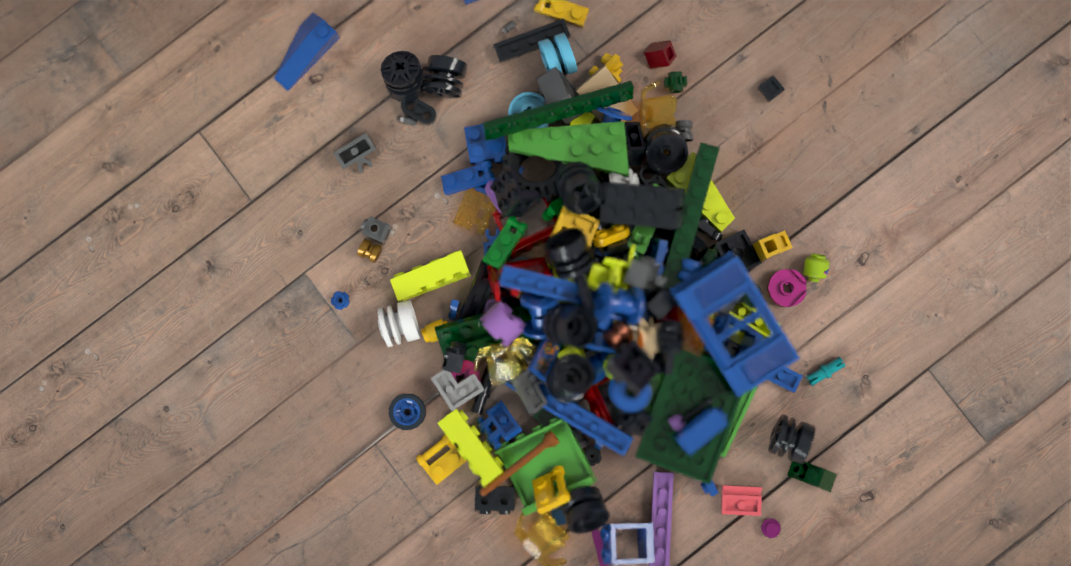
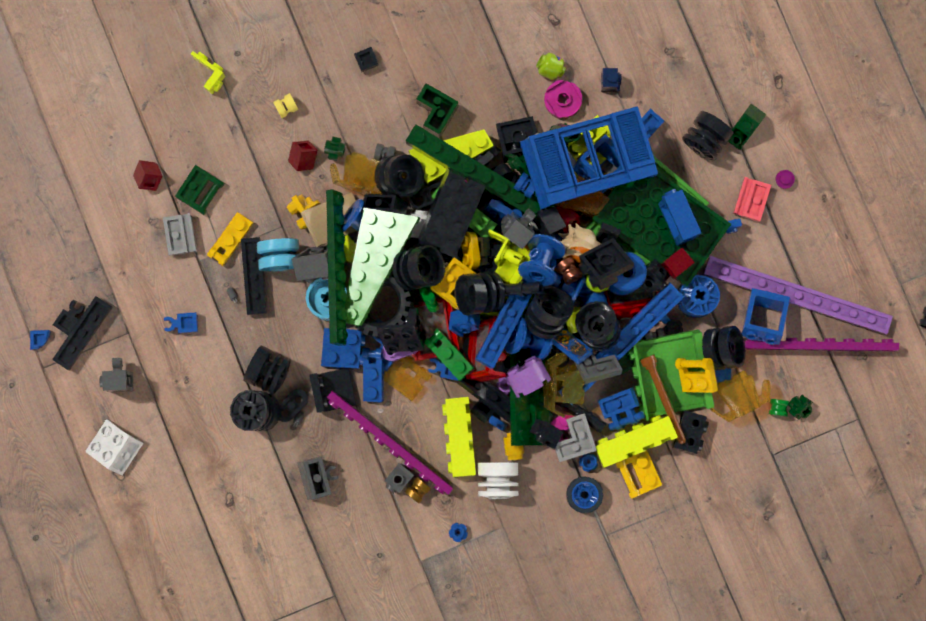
camera: 80 degrees left, 0 degrees up
(306, 49) = (196, 500): blue wedge -> none
(410, 203) = (395, 448): none -> magenta plate
(435, 407) = (593, 462): none -> blue plate
(442, 143) = (325, 383): none -> black bracket
(460, 291) = (481, 411): none -> black plate
(536, 248) = (462, 323): none -> blue brick
(618, 473) = (695, 307): none -> blue wheel
(654, 440) = (677, 263): none -> dark red panel
(670, 337) = (585, 221): black gear -> none
(678, 422) = (665, 236): hinge -> none
(703, 25) = (290, 104): none -> light yellow wheel
(743, 172) = (441, 109): none -> dark green brick
(772, 245) = (519, 101): yellow brick -> none
(819, 329) = (610, 80): none -> dark blue brick
(825, 371) = (651, 86): teal pin -> none

